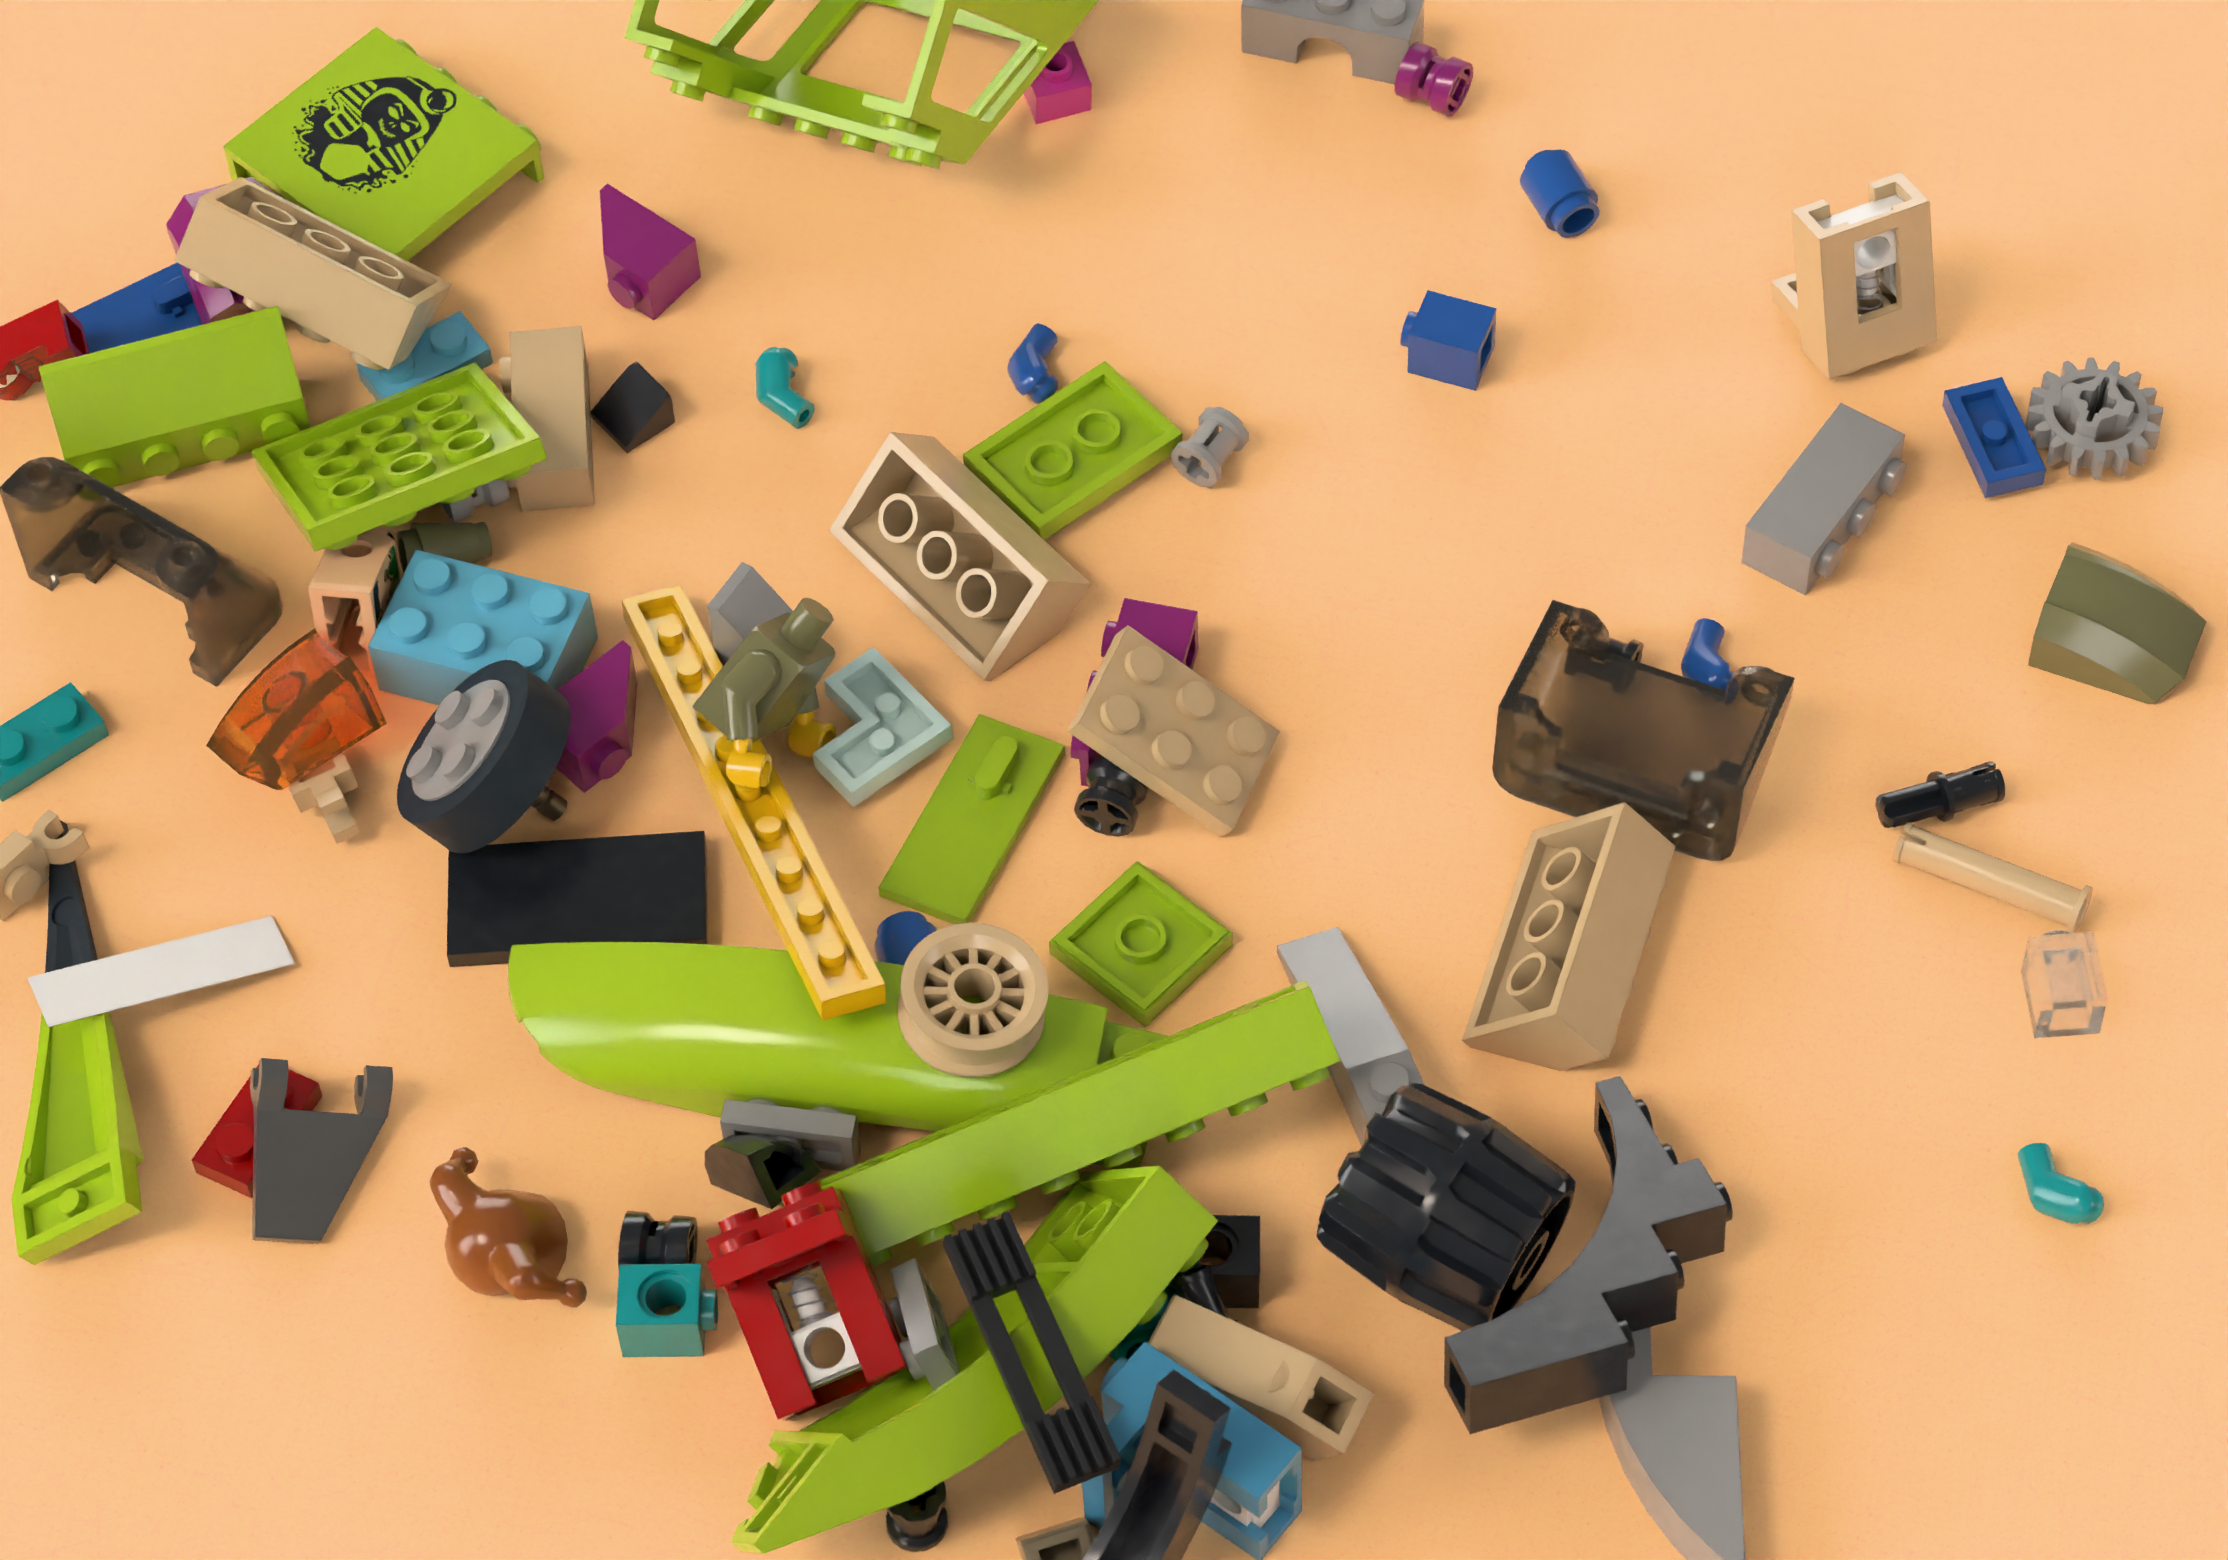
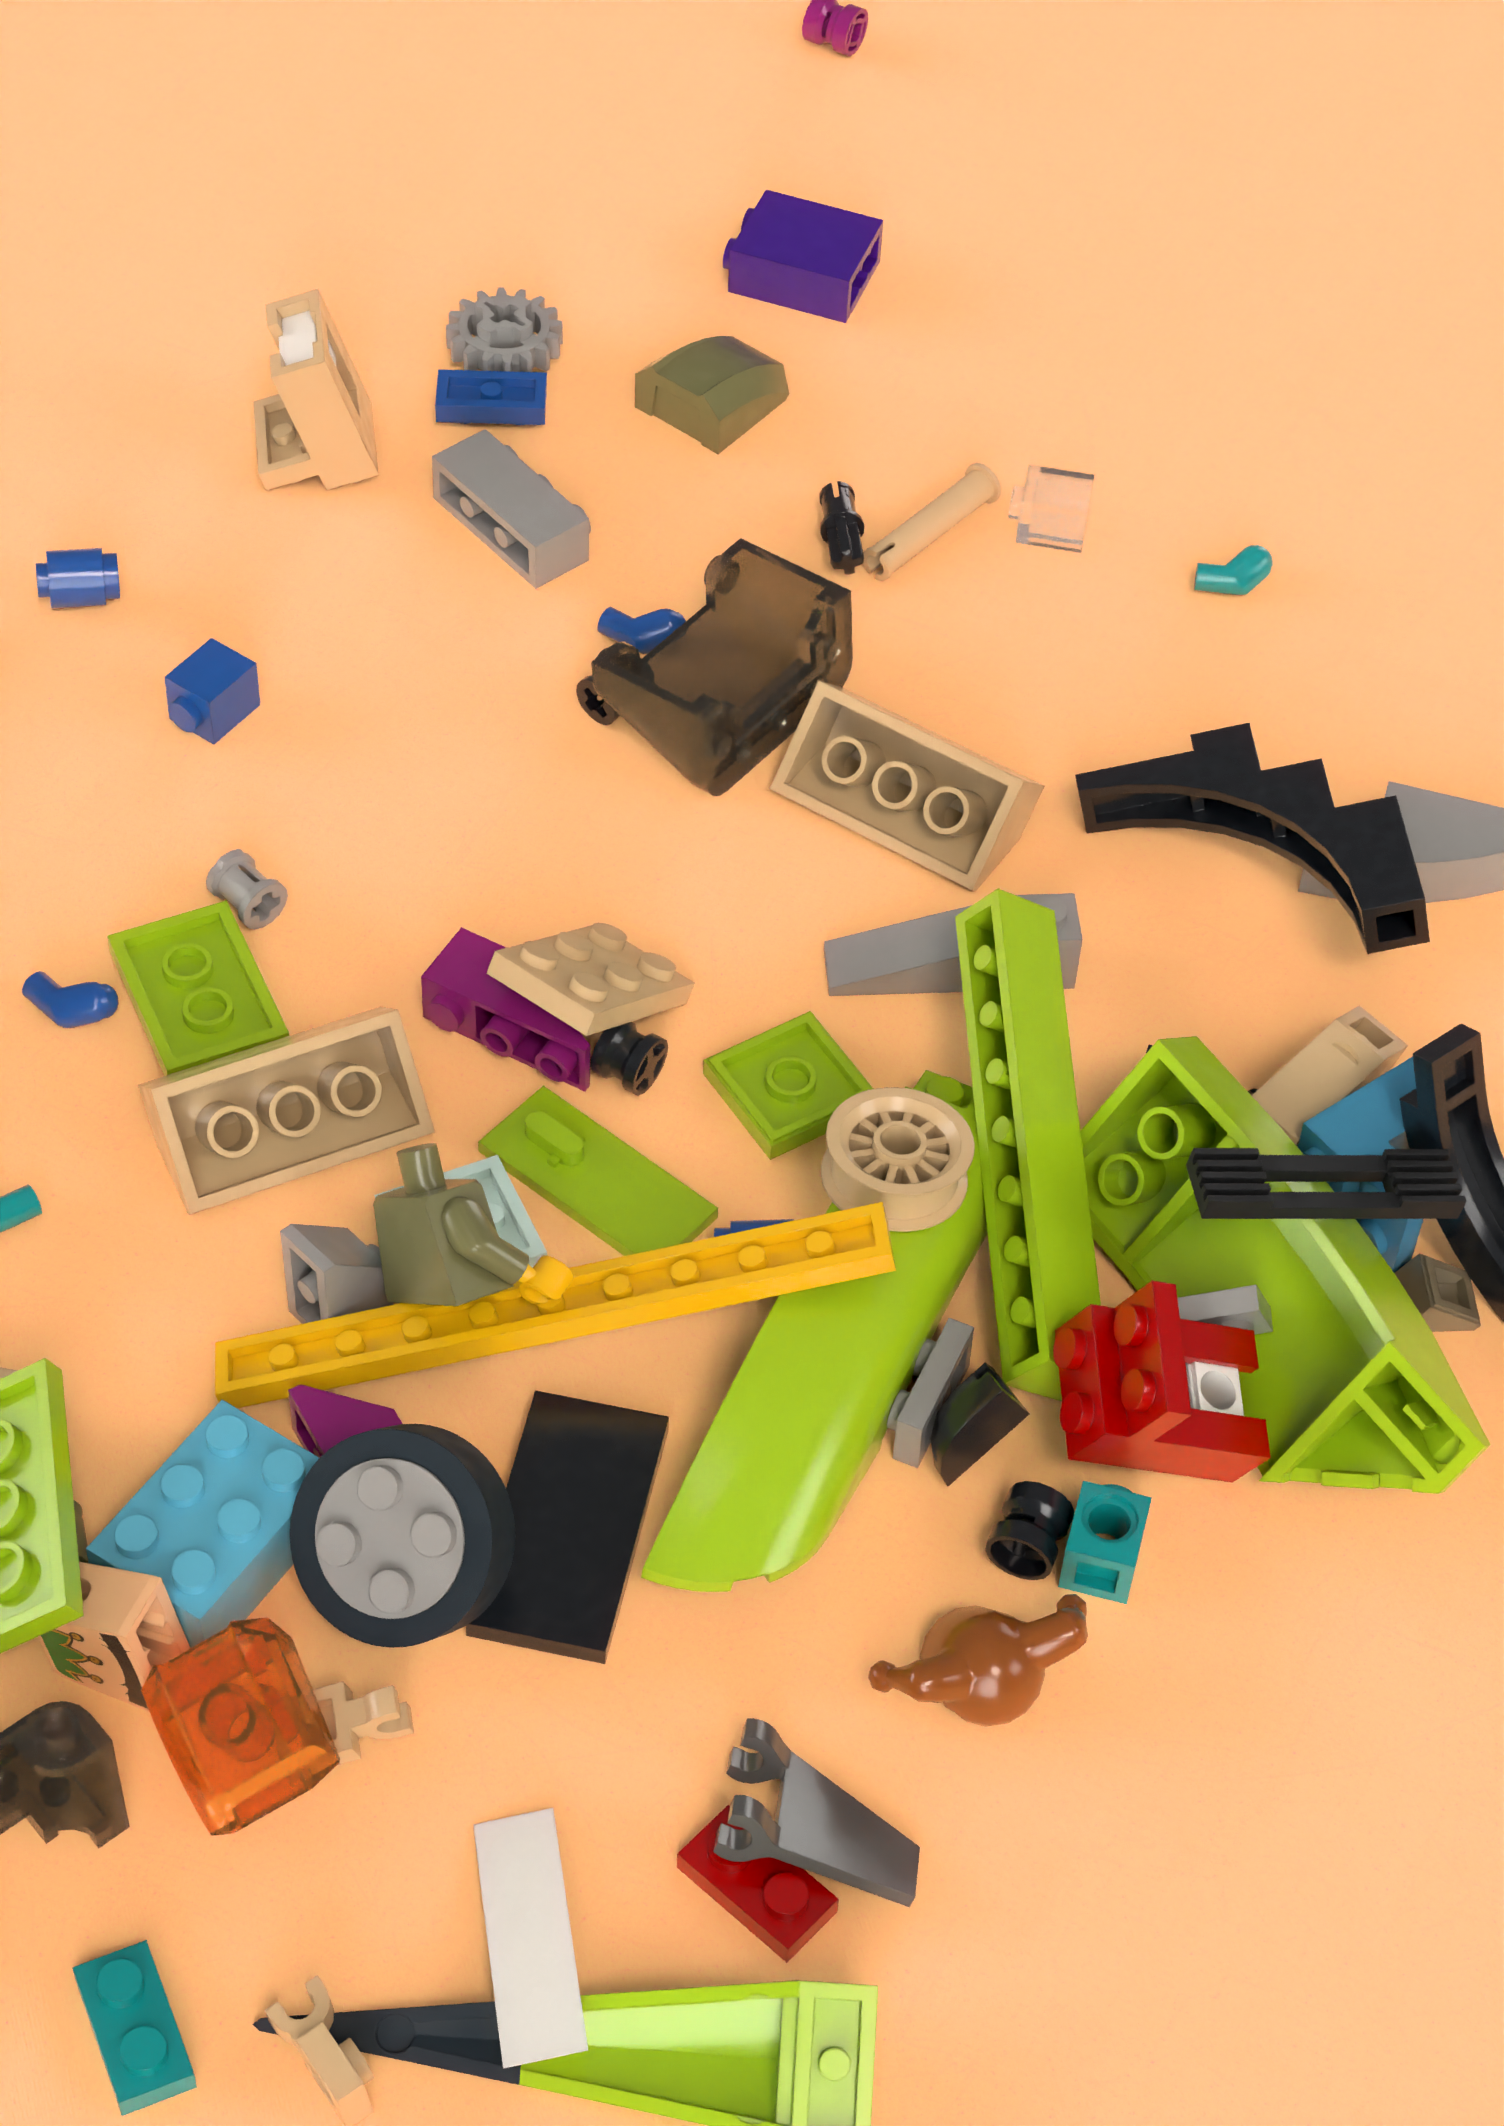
camera: 80 degrees left, 5 degrees down
(1445, 1208) = (1198, 903): black wheel -> none

